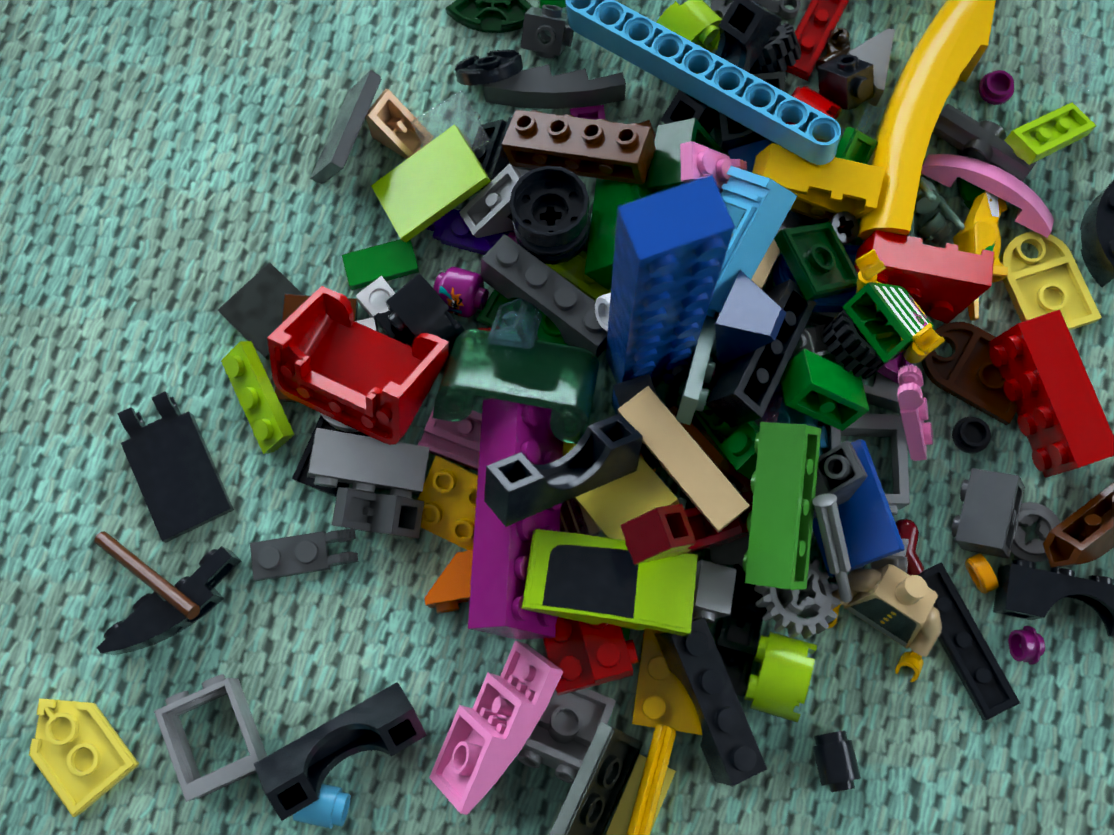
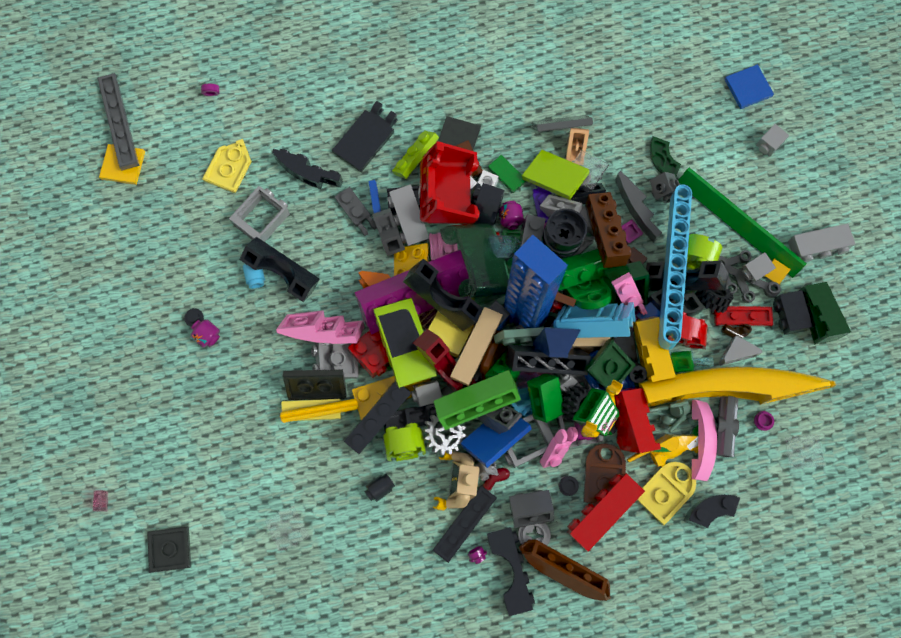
camera: 60 degrees right, 0 degrees up
(147, 575) = (313, 151): reddish brown bar -> none
(299, 507) = (374, 196): none -> blue tile
(489, 69) = (627, 170): black tile -> none
(833, 542) = (473, 433): light grey axle -> none
(846, 81) = (720, 342): black brick -> none
(981, 573) = (500, 518): light orange tile -> none
(1049, 133) = (749, 456): lime plate -> none

